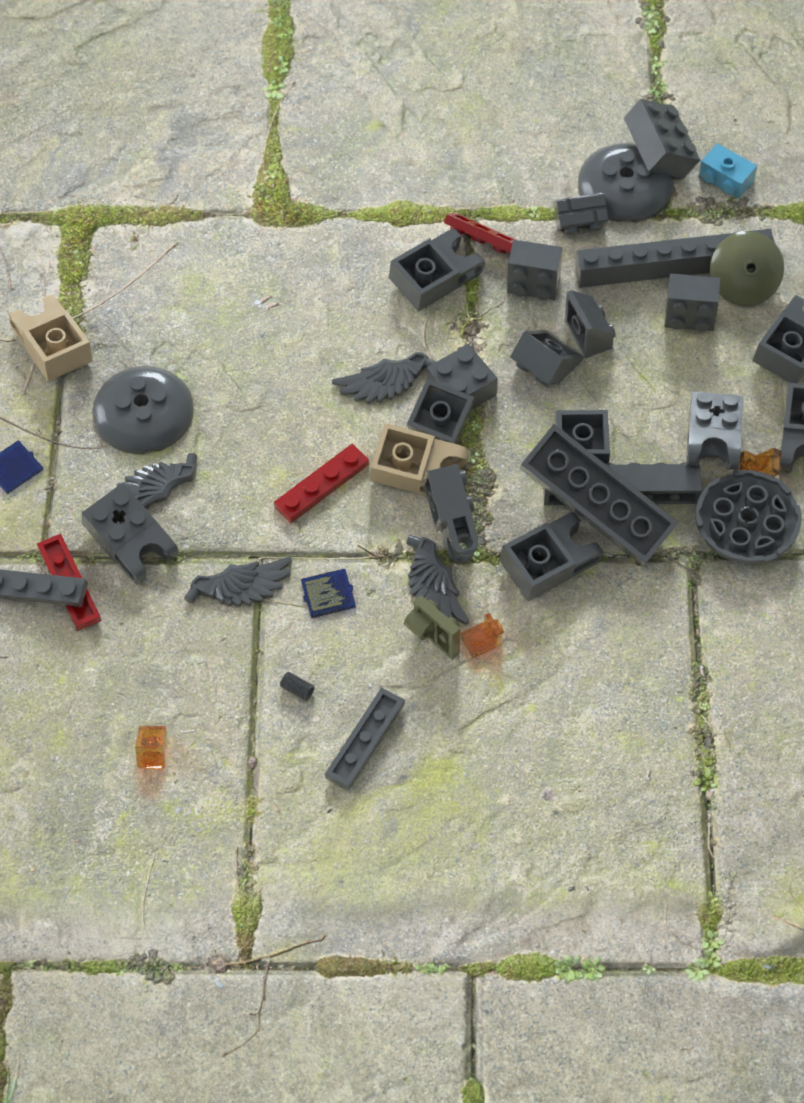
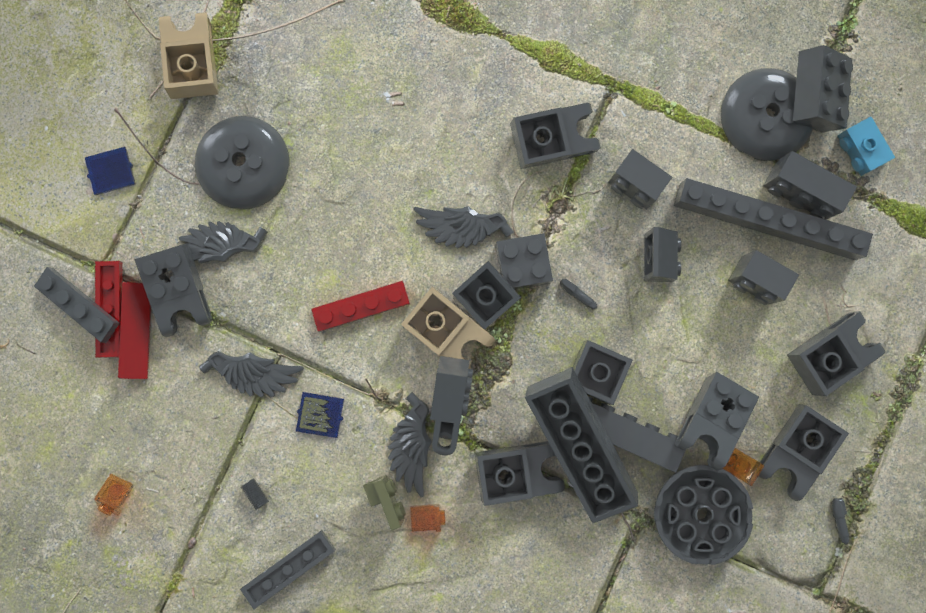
camera: 20 degrees right, 25 degrees up
(105, 592) = (134, 332): none -> red slope
(479, 232) = (618, 119): red plate -> none
(521, 389) = (574, 291): none -> dark grey piece
(545, 356) = (609, 269): dark grey slope -> none
(581, 212) = (711, 133): dark grey brick -> none
(691, 213) = (809, 186): none -> dark grey brick
(730, 265) = (830, 251): olive dish -> none

